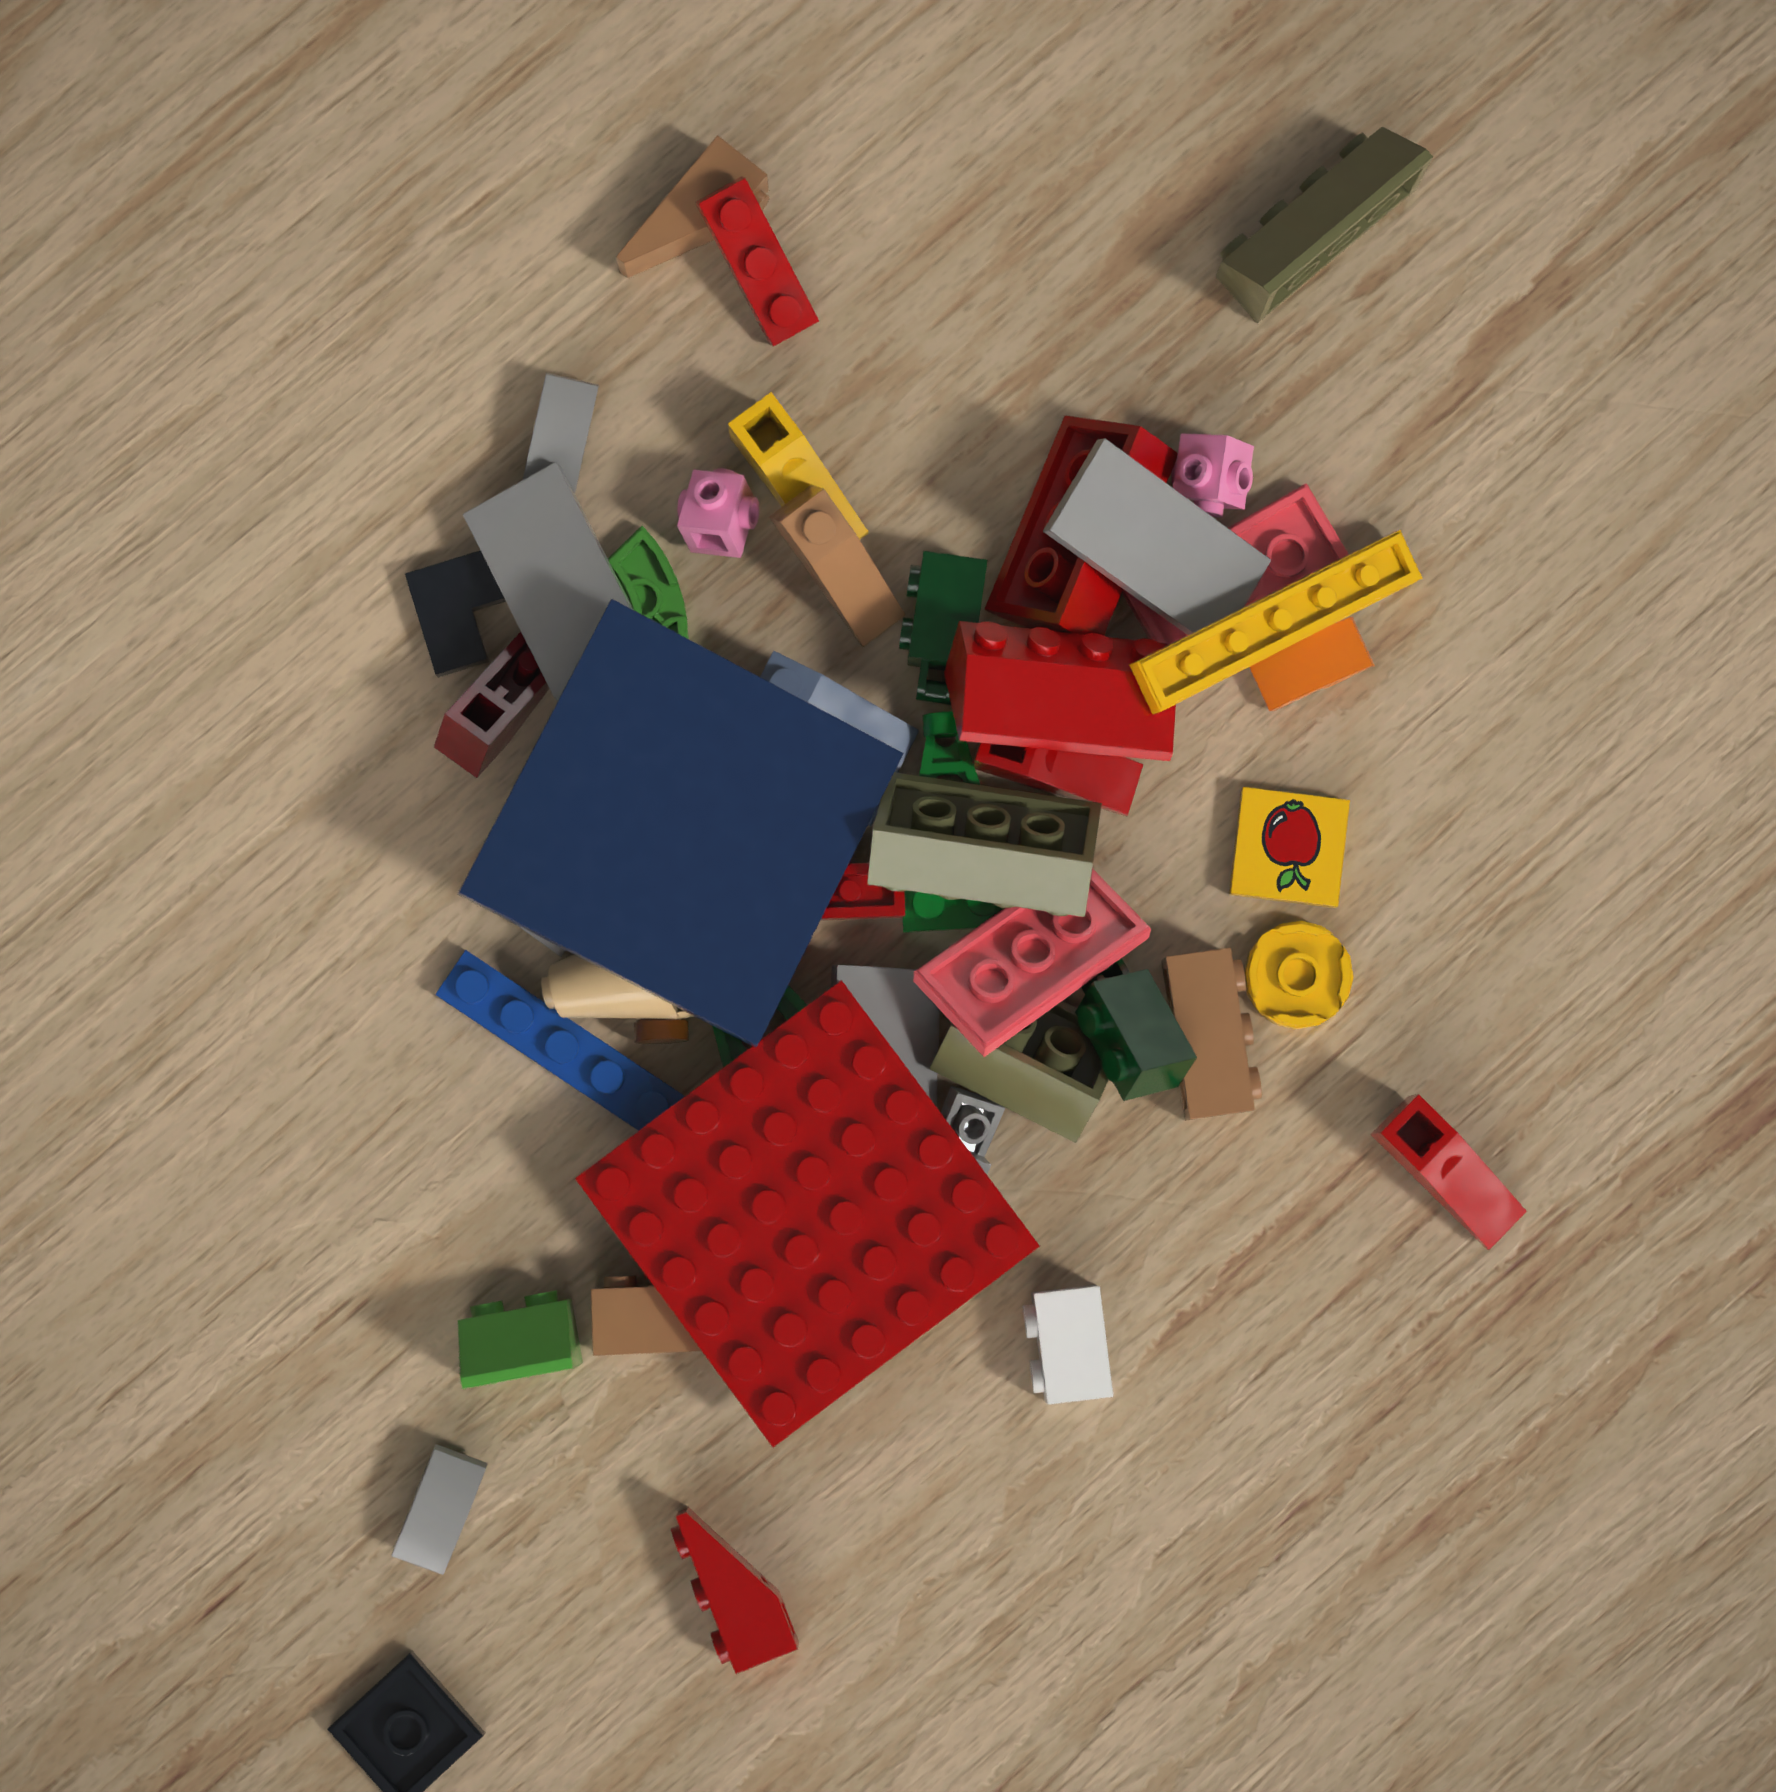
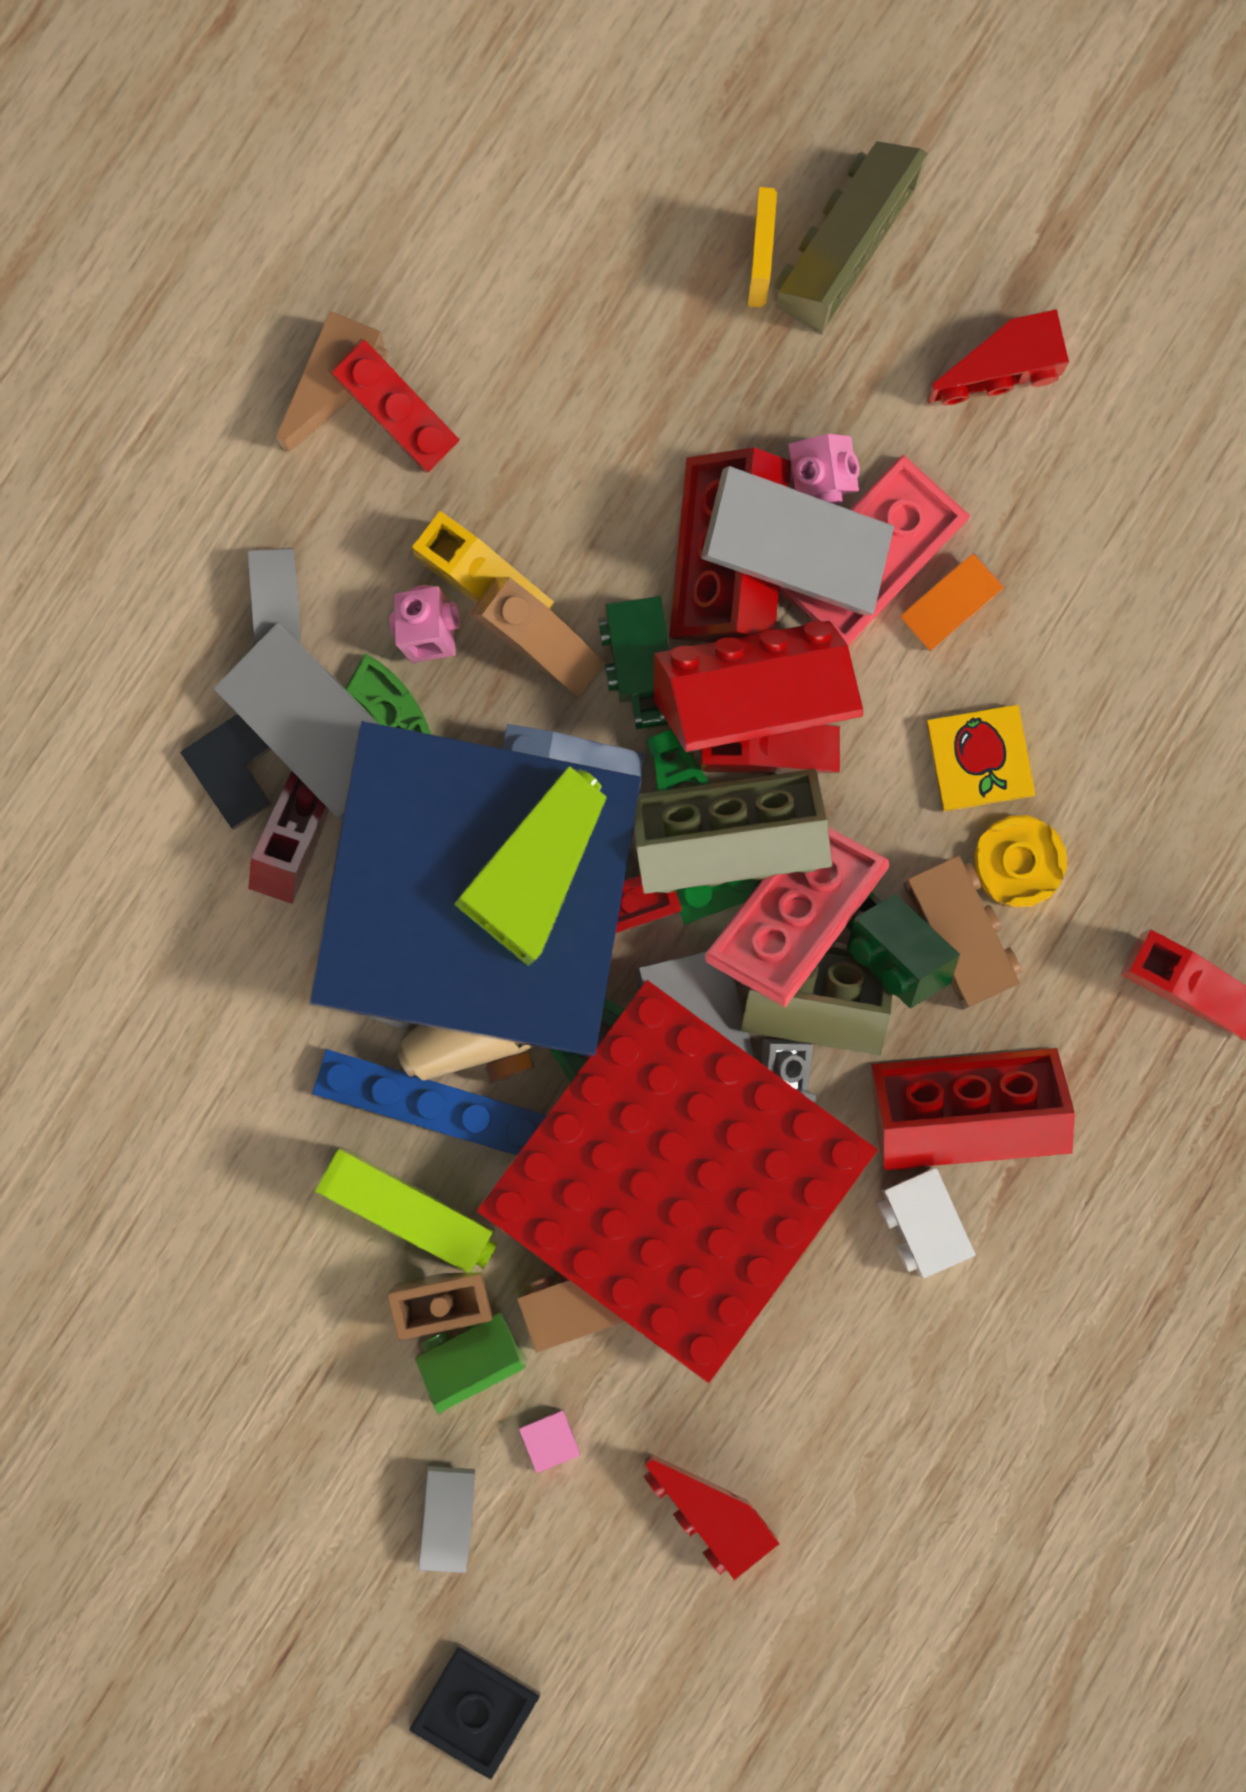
camera: 15 degrees left, 0 degrees up
(498, 1155) = (406, 1211): none -> lime slope
(502, 1268) = (439, 1303): none -> medium nougat slope
(580, 1458) = (549, 1441): none -> bright pink tile
(747, 822) = (531, 873): none -> lime slope
(1160, 1233) = (972, 1109): none -> red slope
(1218, 206) = (762, 247): none -> yellow tile
(1275, 622) = (913, 576): yellow tile -> none
(1467, 409) = (1017, 353): none -> red slope

